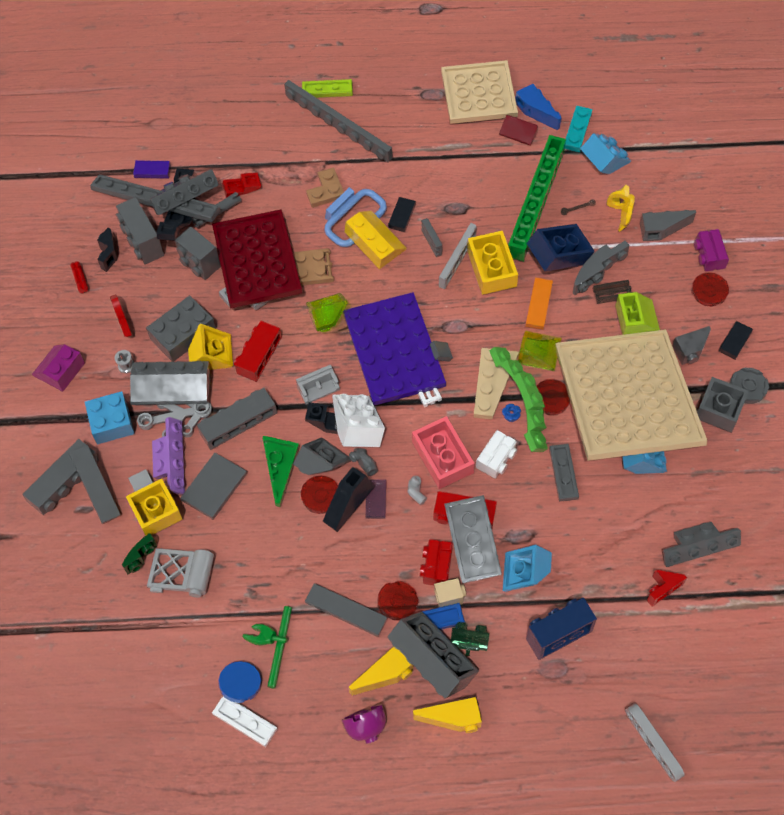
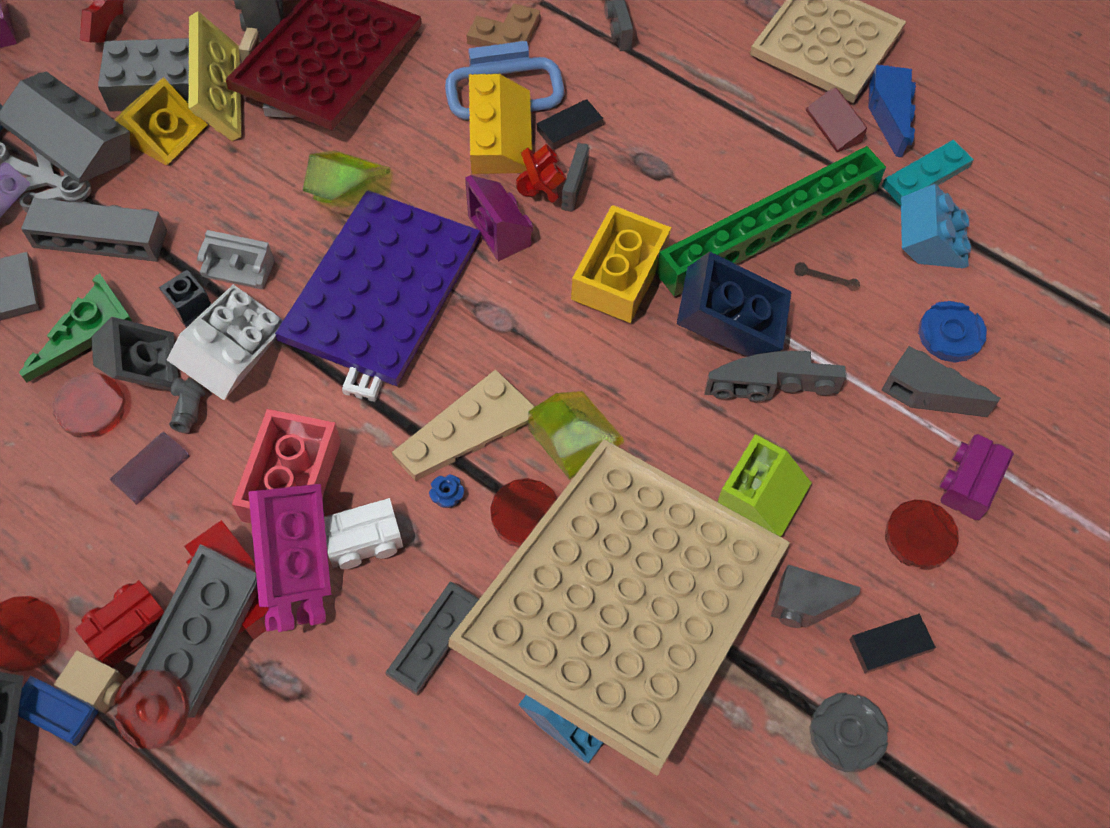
camera: 35 degrees right, 0 degrees up
(122, 363) = (43, 63): light grey bush -> none
(214, 281) = (249, 42): none -> tan tile
(218, 307) = (211, 61): none -> light yellow plate
(258, 350) = (210, 165): red brick -> none
(312, 267) = (386, 109): medium nougat plate -> none
(347, 498) = (107, 433): black slope -> none
(414, 490) = (208, 495): light grey arm -> none
(417, 280) = (497, 217): none -> magenta slope
(423, 248) = (541, 173): none -> red hips
(441, 351) = (435, 333): dark grey tile -> none
(456, 257) = (579, 225): light grey tile -> none
(469, 639) = (40, 762): clear green hips -> none
(484, 583) = (151, 709): none -> clear red tile
(485, 479) = (290, 554): none -> dark pink tile
(525, 567) = (229, 740): dark azure slope -> none
(531, 396) = (482, 487): bright green piece -> none
(539, 303) = (638, 368): orange tile -> none
(611, 289) = (764, 423): clear smoke tile -> none
(626, 206) = (902, 299): yellow hair -> none
(649, 195) = (952, 331): none -> blue tile
(722, 404) = (767, 727): dark grey brick -> none

